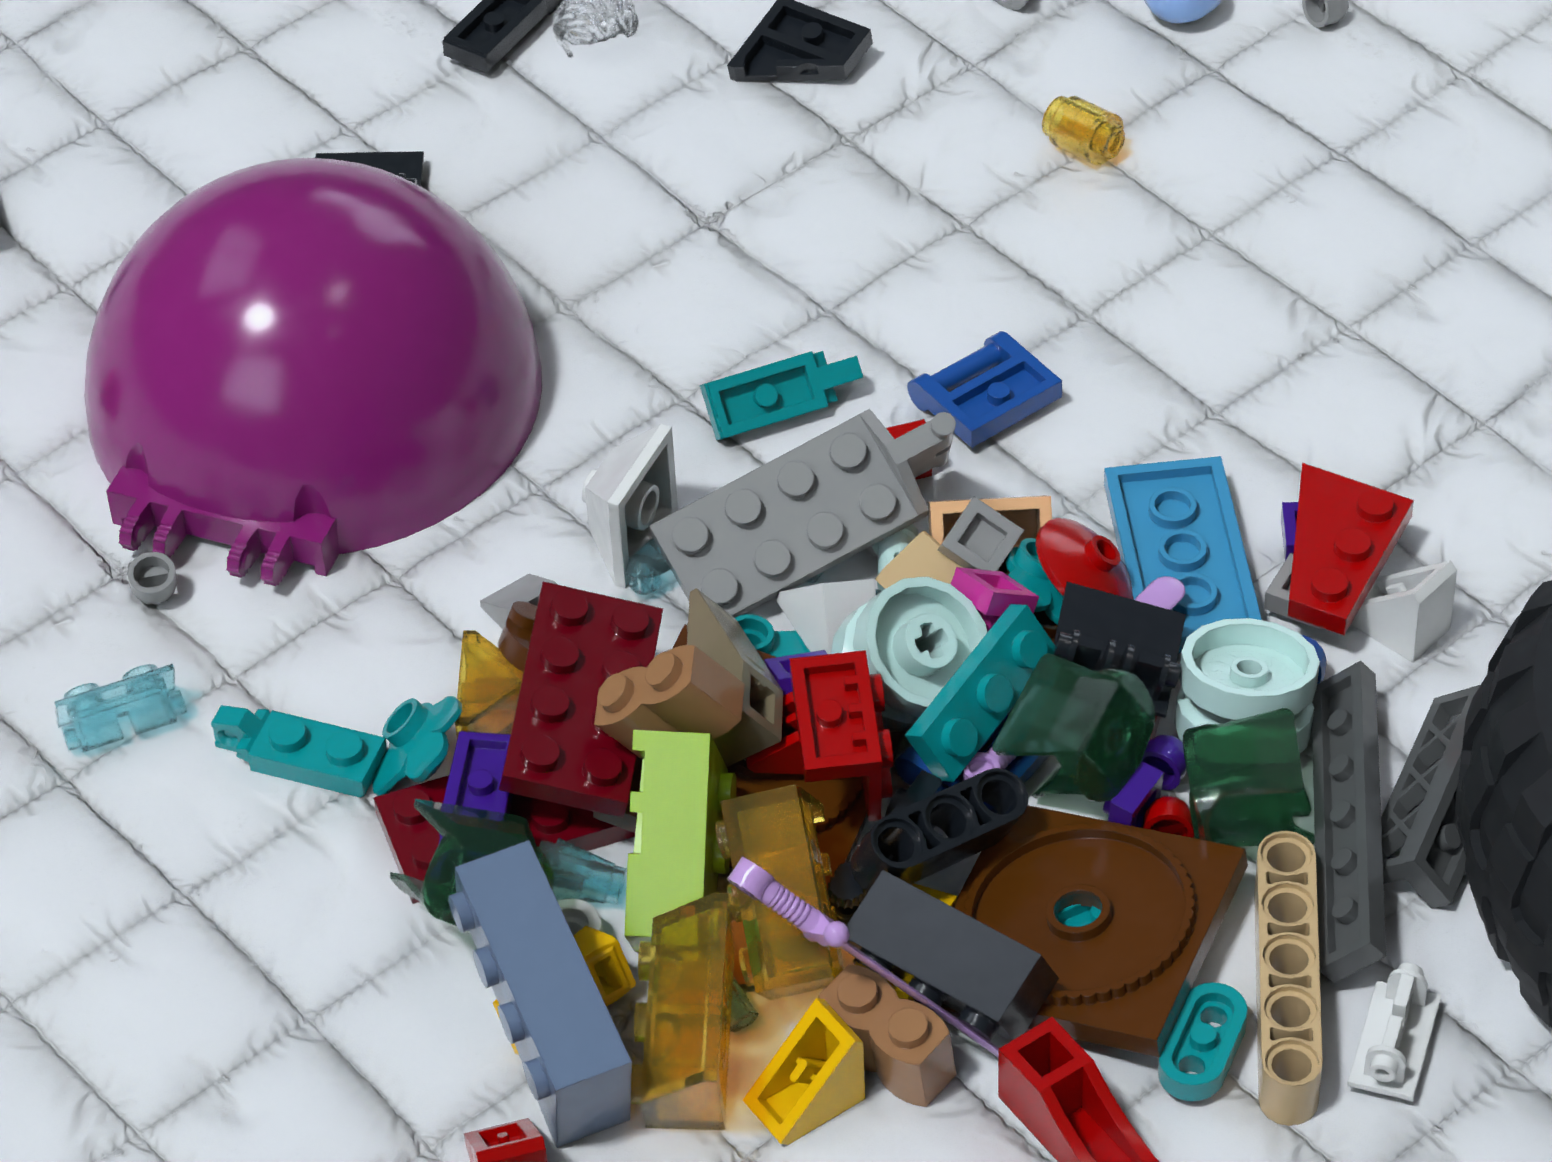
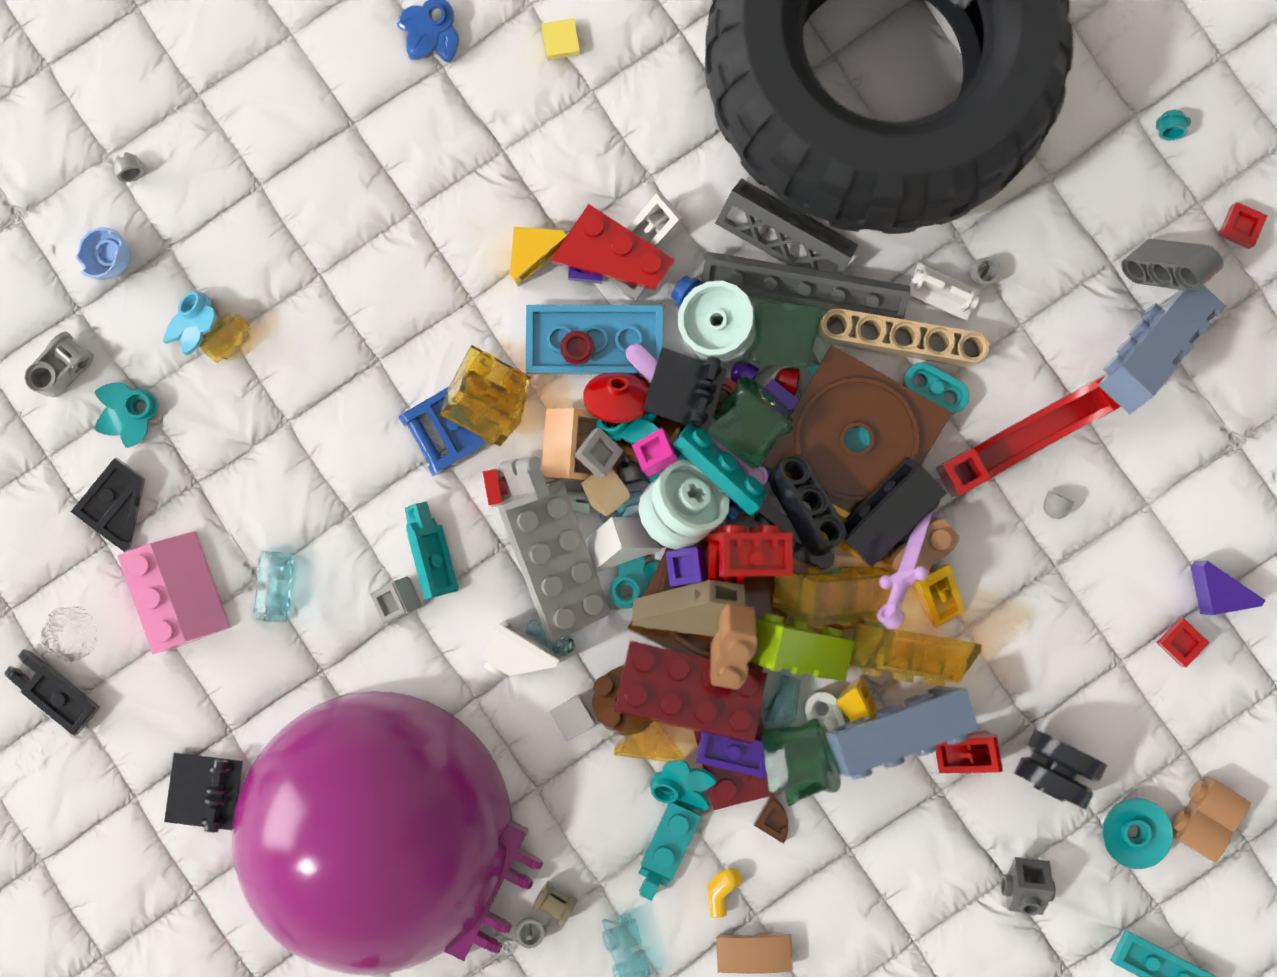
camera: 85 degrees left, 40 degrees up
(119, 882) = (754, 953): none -> medium nougat slope
(203, 605) = (554, 903): none -> dark tan bush
(226, 823) = (719, 888): none -> yellow arm
(359, 893) = (773, 819): none -> reddish brown tile
(671, 116) = (173, 592): none -> bright pink slope
(691, 367) = (396, 599): none -> light grey slope
(697, 227) = (274, 601): none -> clear light blue hinge
(948, 51) = (122, 414): none -> teal plate
(1053, 415) = (486, 396): none -> clear yellow slope
(1118, 91) = (191, 322): none -> medium azure plate
(1159, 514) = (577, 348): none -> dark red plate
(1308, 439) = (532, 249): none -> yellow slope
(1455, 1083) = (989, 275): none -> light grey hinge

